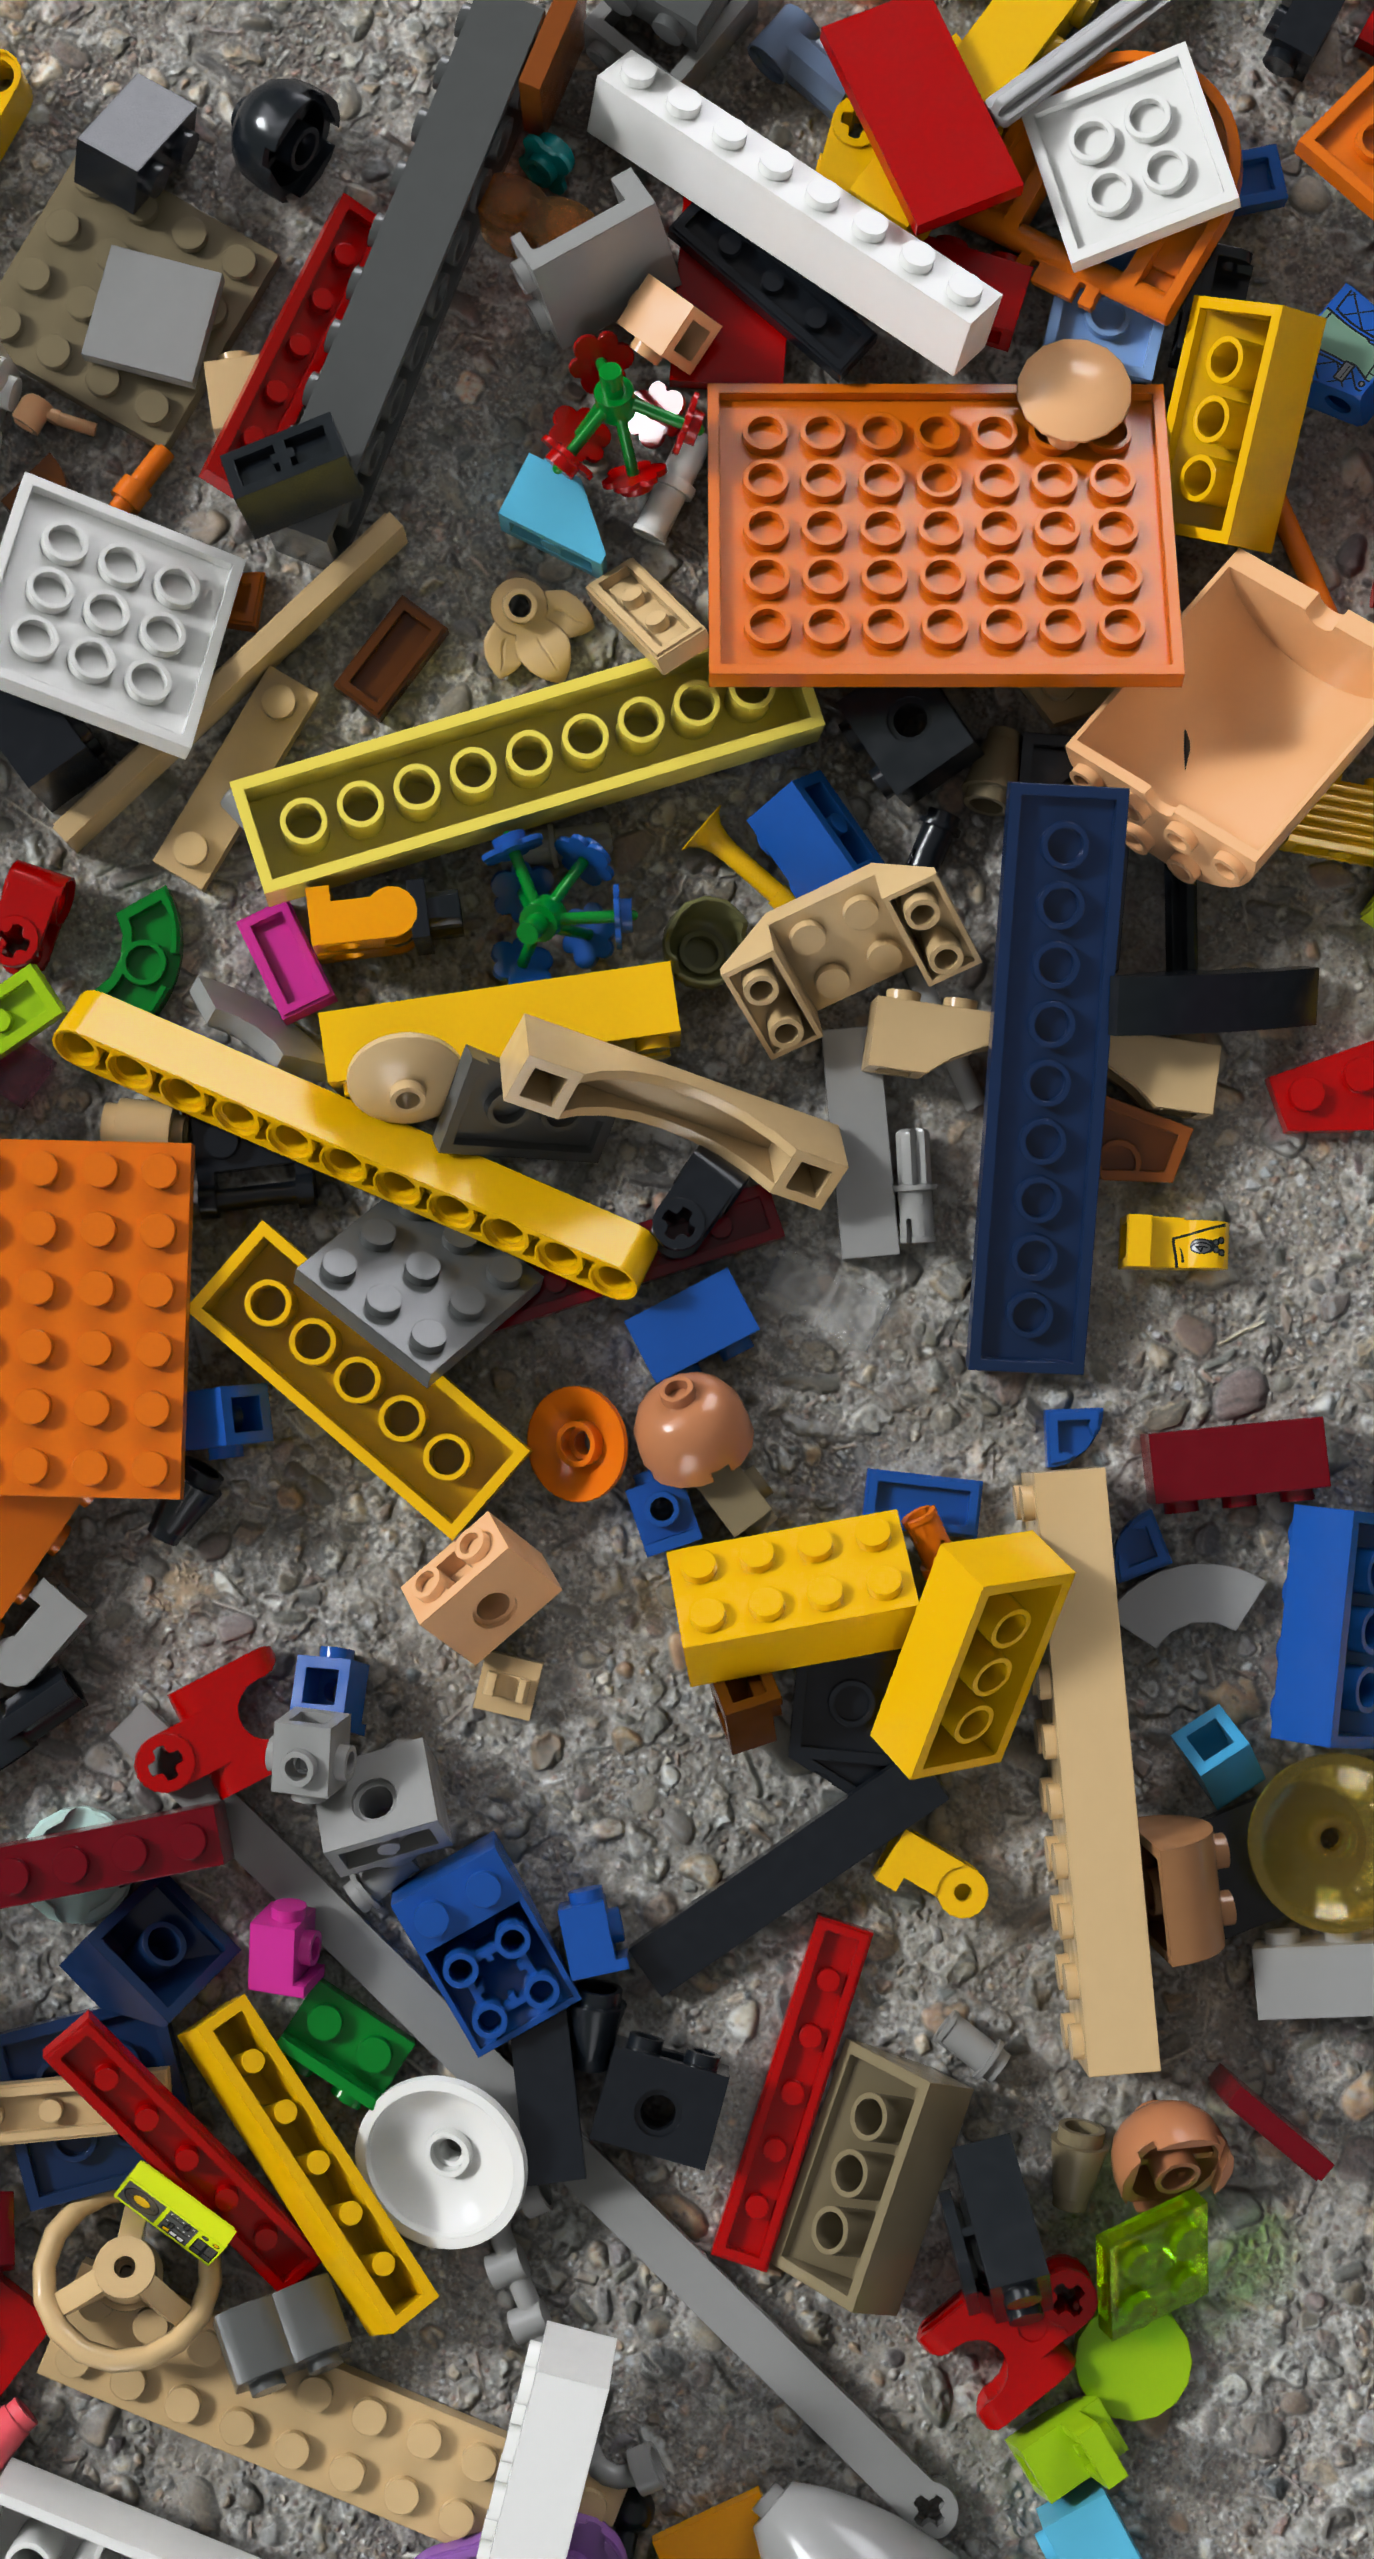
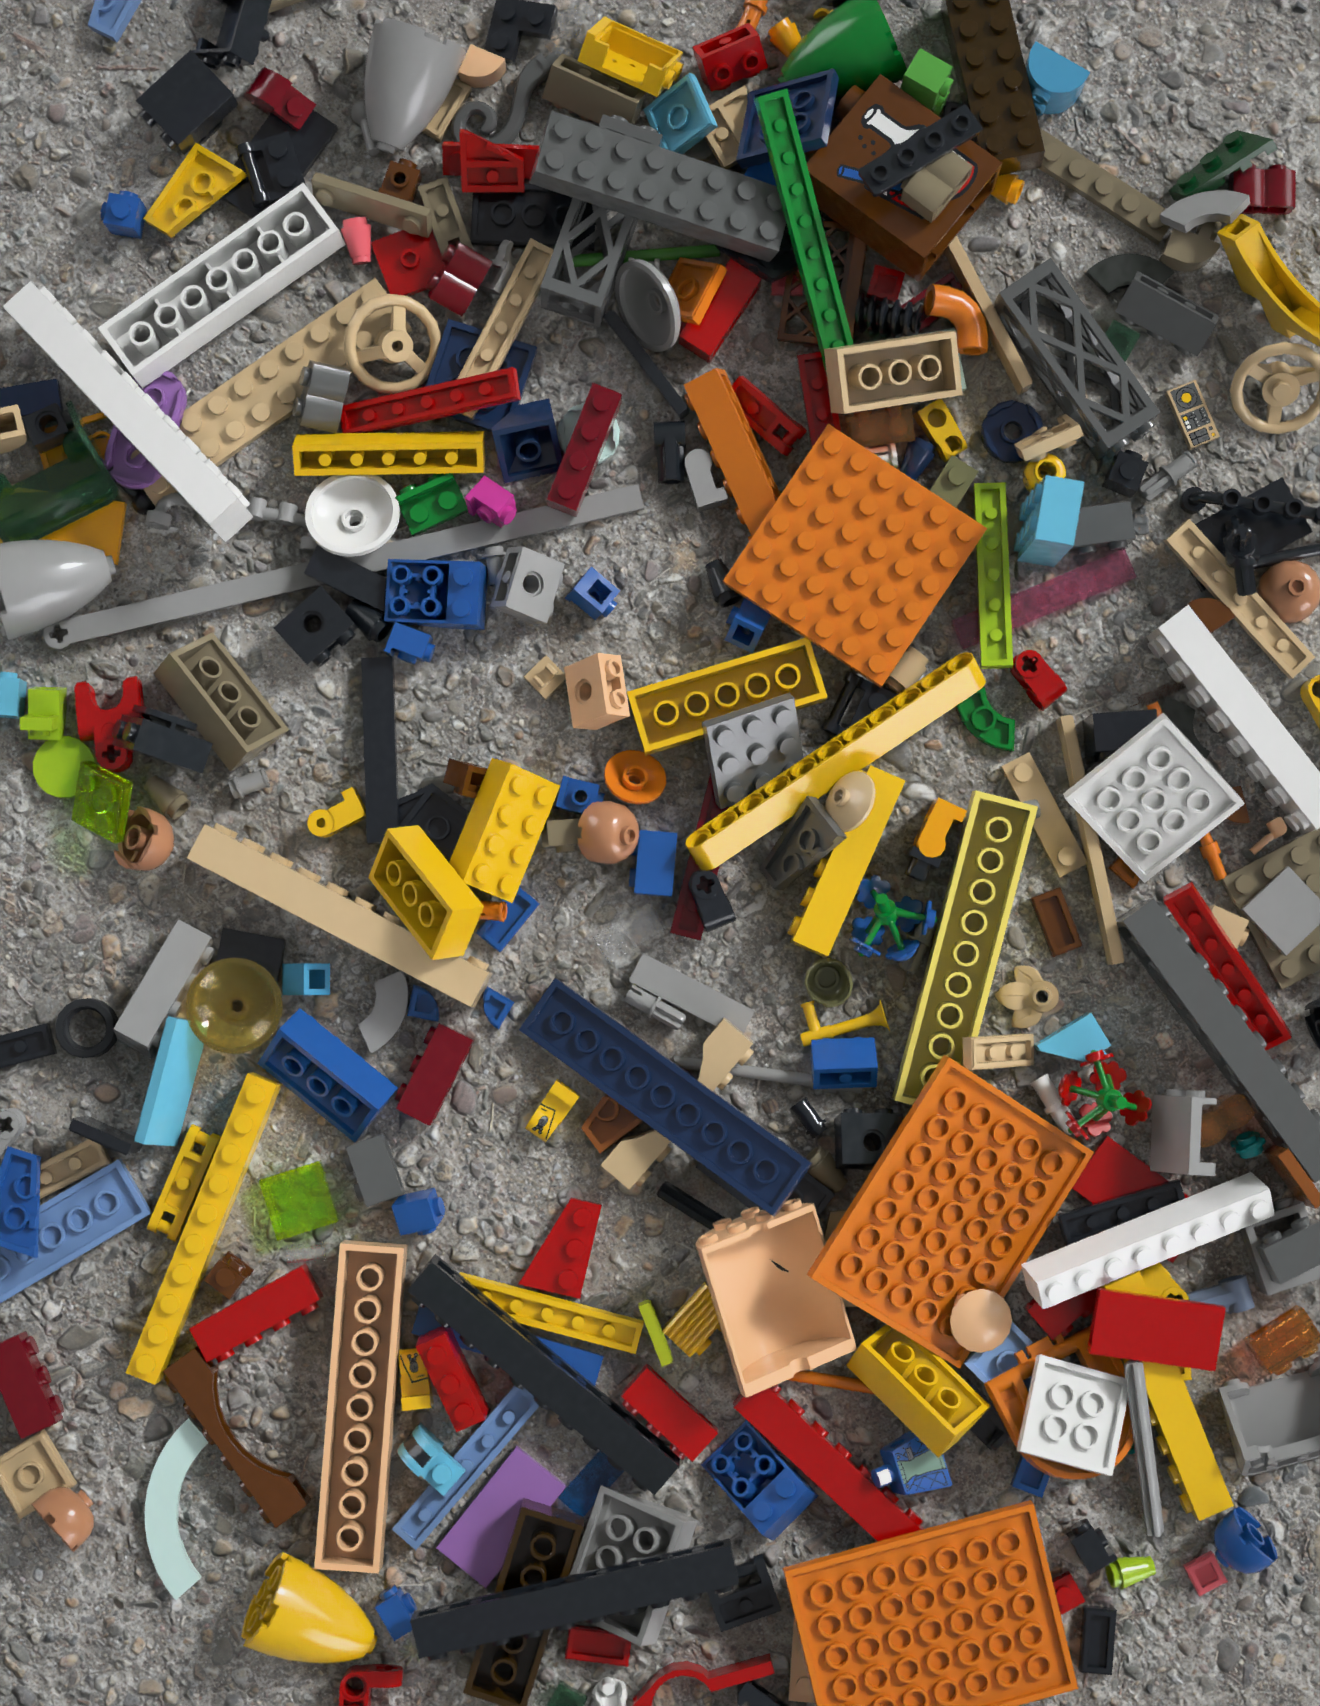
camera: 125 degrees right, 0 degrees up
(175, 2212) = (406, 382): neon yellow tile -> none
(211, 1732) = (609, 530): red piece -> none
(259, 1028) = (920, 752): light grey tile -> none
(287, 962) = (943, 783): dark pink tile -> none
(291, 475) = (1162, 923): black hinge -> none
(310, 1754) = (571, 568): light grey brick -> none
(580, 1075) = (802, 878): tan arch -> none
(667, 326) = (1132, 1149): light nougat brick -> none
(791, 2092) = (281, 690): red tile -> none
(841, 944) = (788, 1041): tan slope -> none
(1183, 1888) = (261, 922): medium nougat brick -> none
(1212, 1000) = (652, 1198): black slope -> none
(1270, 2123) = (129, 894): dark red tile -> none

